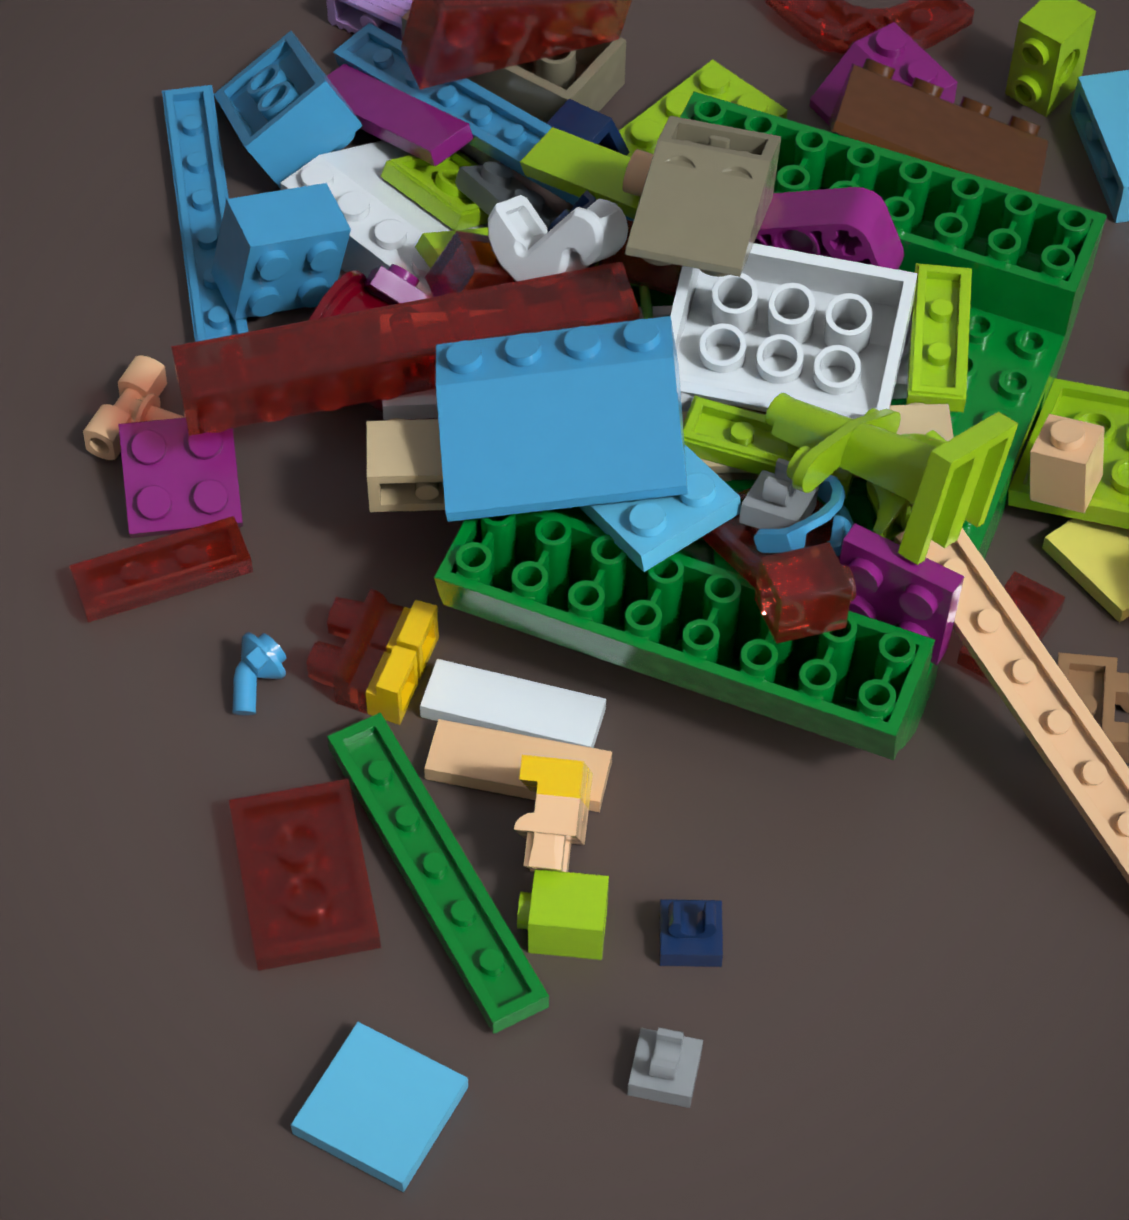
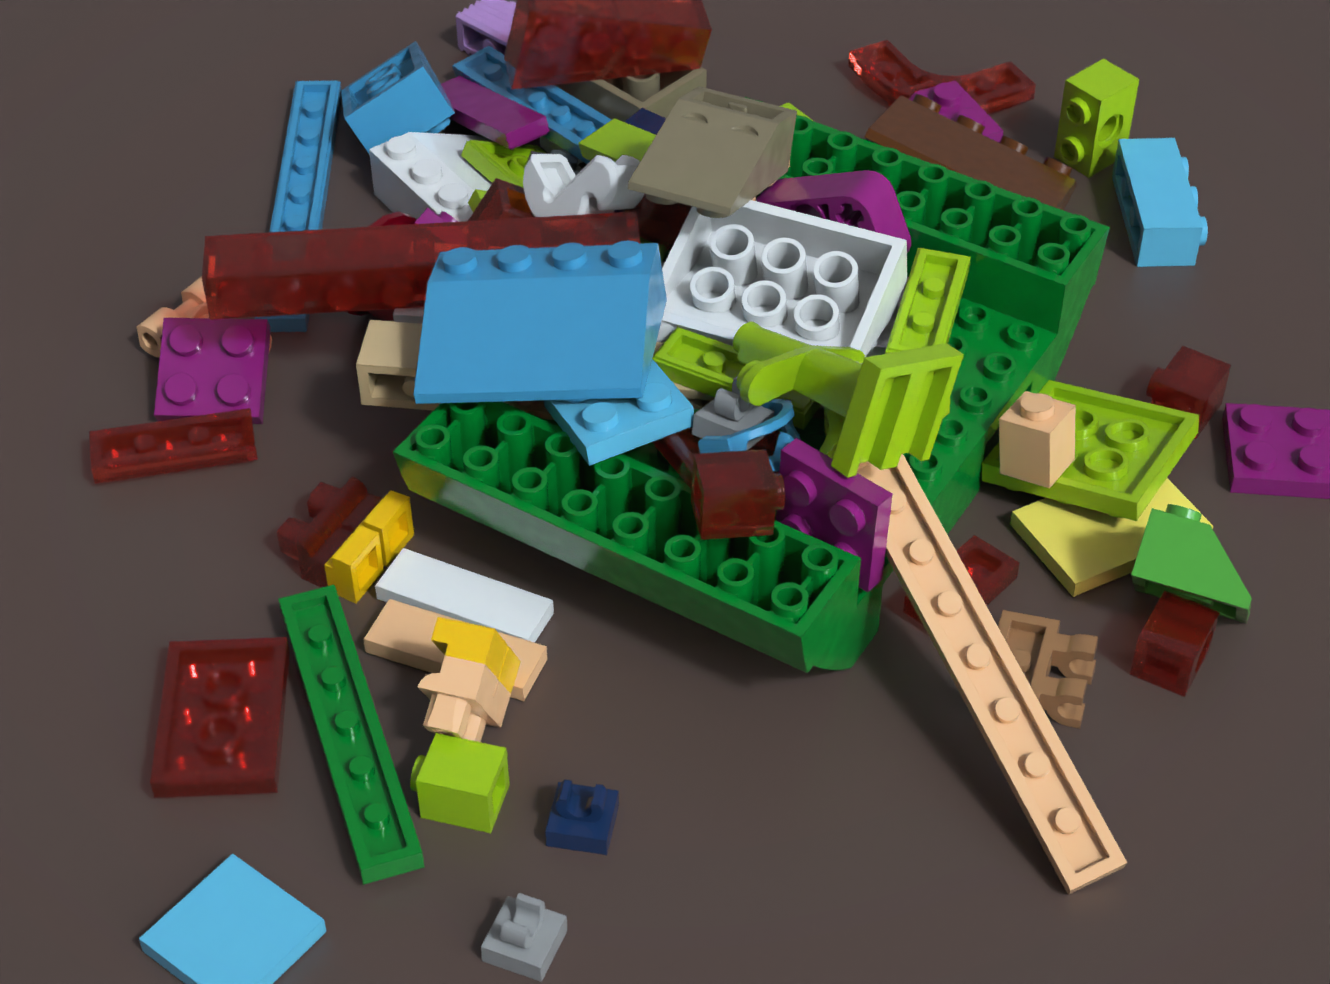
camera: 10 degrees right, 10 degrees down
(259, 659) = (237, 529): dark azure plate -> none
(279, 250) = (350, 184): dark azure brick -> none

